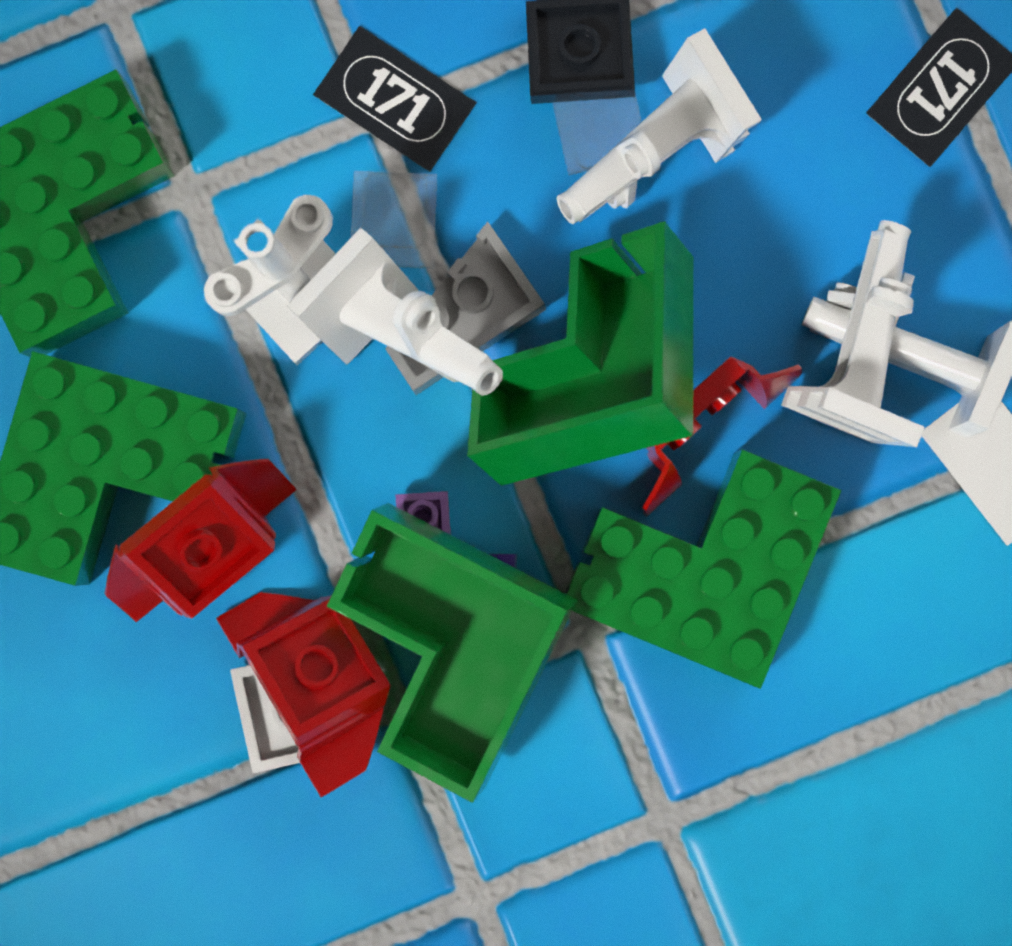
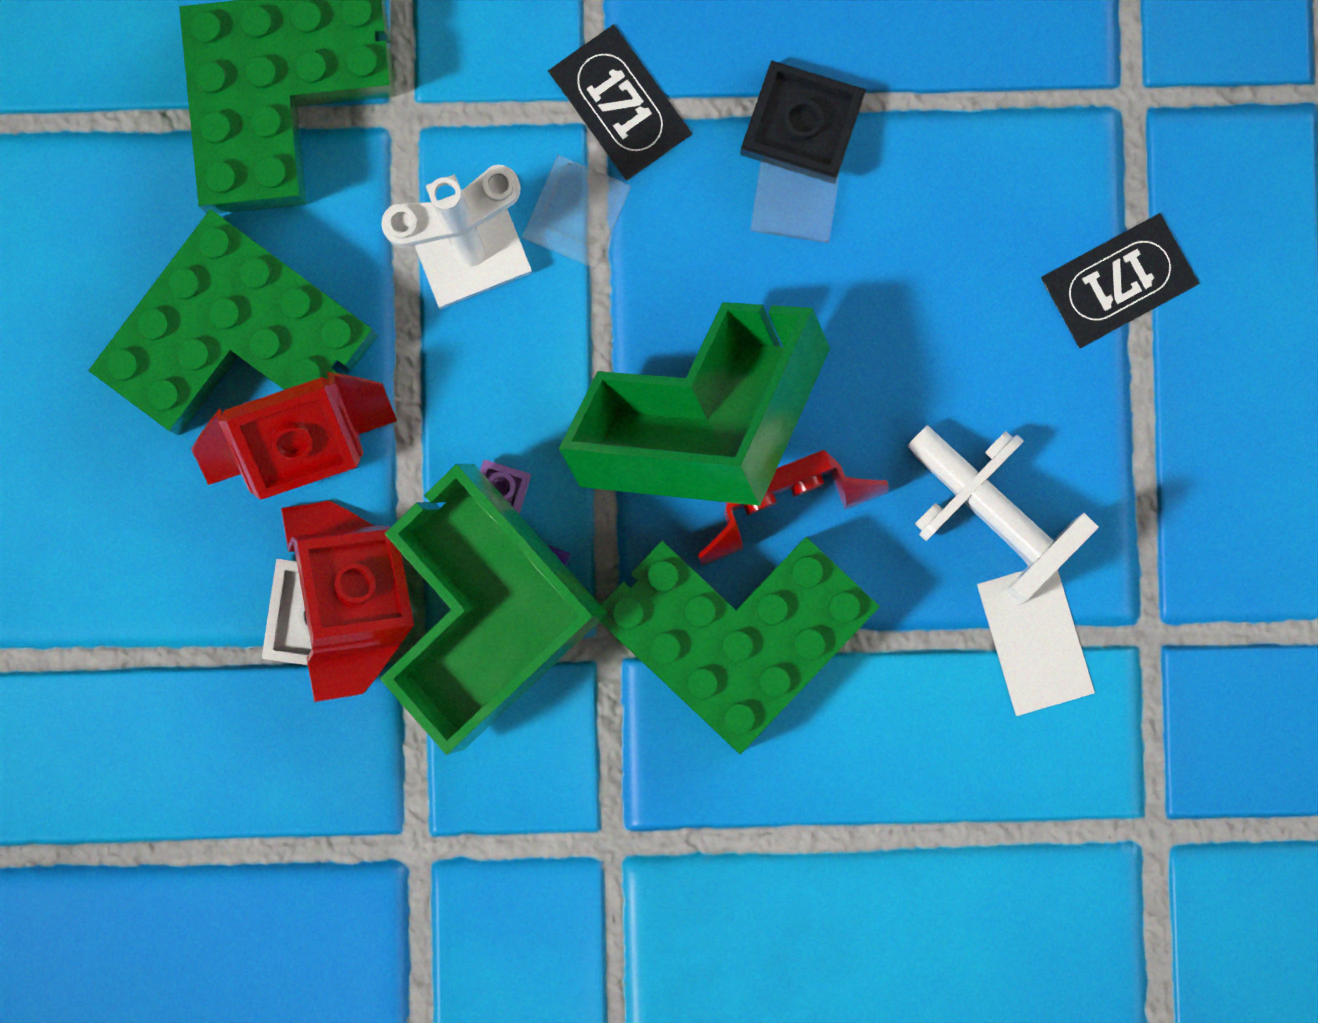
camera: 20 degrees right, 0 degrees up
(368, 298) = (527, 275): white piece -> none
(477, 301) = (611, 322): light grey wing -> none
(703, 105) = (887, 218): white piece -> none
(856, 389) = (929, 520): white piece -> none

